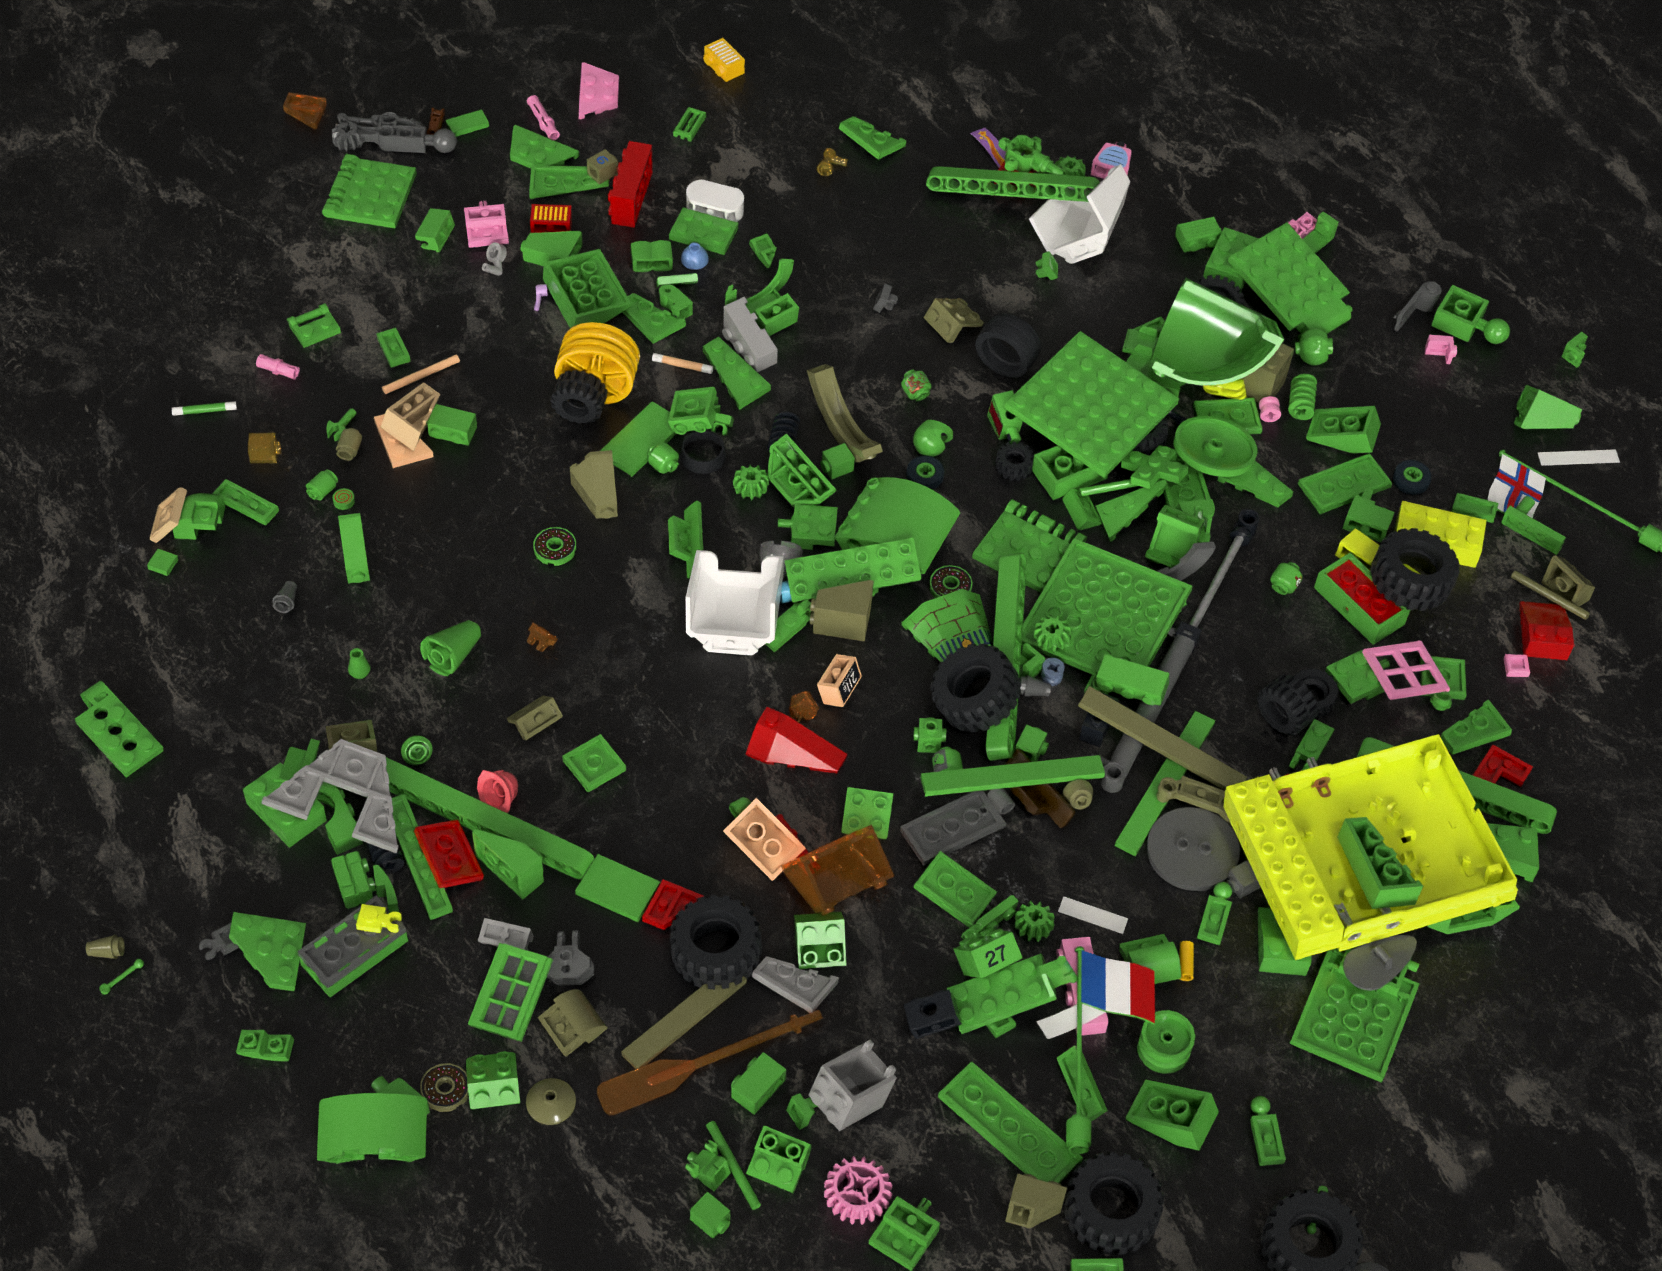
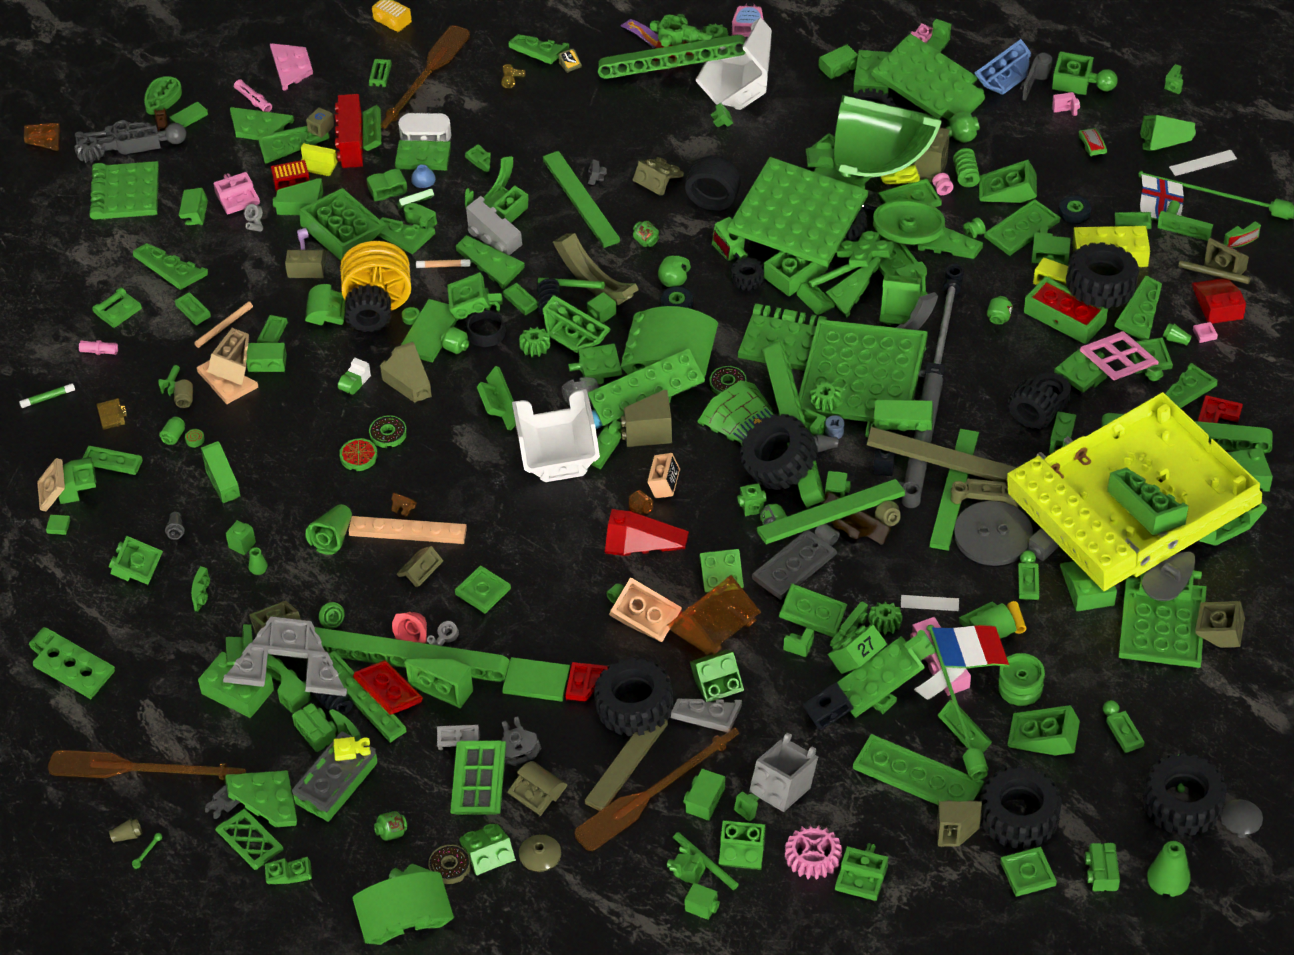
camera: 10 degrees left, 5 degrees down
(116, 861) = (108, 764): none -> clear orange piece
(226, 970) = (233, 823): none -> bright green window
(228, 627) = (135, 560): none -> bright green plate
(282, 683) = (199, 587): none -> bright green slope
(350, 630) = (240, 537): none -> bright green brick
(386, 293) = (169, 267): none -> bright green wing
(394, 1023) = (390, 825): none -> bright green head
(438, 92) = (154, 95): none -> bright green piece
(470, 395) = (272, 330): none -> bright green tile
(513, 565) = (358, 454): none -> tile
(531, 806) = (443, 629): none -> light grey plate
(533, 325) = (306, 263): none -> olive slope
(535, 381) = (325, 305): none -> bright green brick
(537, 669) = (407, 529): none -> light nougat plate
(540, 472) = (355, 376): none -> leg
(588, 208) = (319, 159): none -> neon yellow panel
(625, 415) = (410, 315): none -> bright green tile
(657, 186) = (372, 128): none -> bright green plate
(753, 426) = (520, 298): none -> bright green tile
(758, 121) = (438, 56): none -> clear orange piece
(818, 424) = (579, 283): none -> bright green bar
(859, 326) = (581, 199): none -> bright green tile
(900, 160) = (569, 60): none -> slope
(926, 925) = (799, 644): none -> bright green panel
(1288, 471) = (974, 228): none -> bright green wheel
(1385, 290) = (1006, 69): none -> medium blue wedge
(1422, 1035) = (1221, 623): none -> olive slope
(1449, 620) = (1140, 310): none -> bright green wing
(1458, 401) = (1093, 141): none -> slope
(1482, 660) = (1176, 334): none -> bright green cone
(1592, 559) = (1240, 237): none -> slope

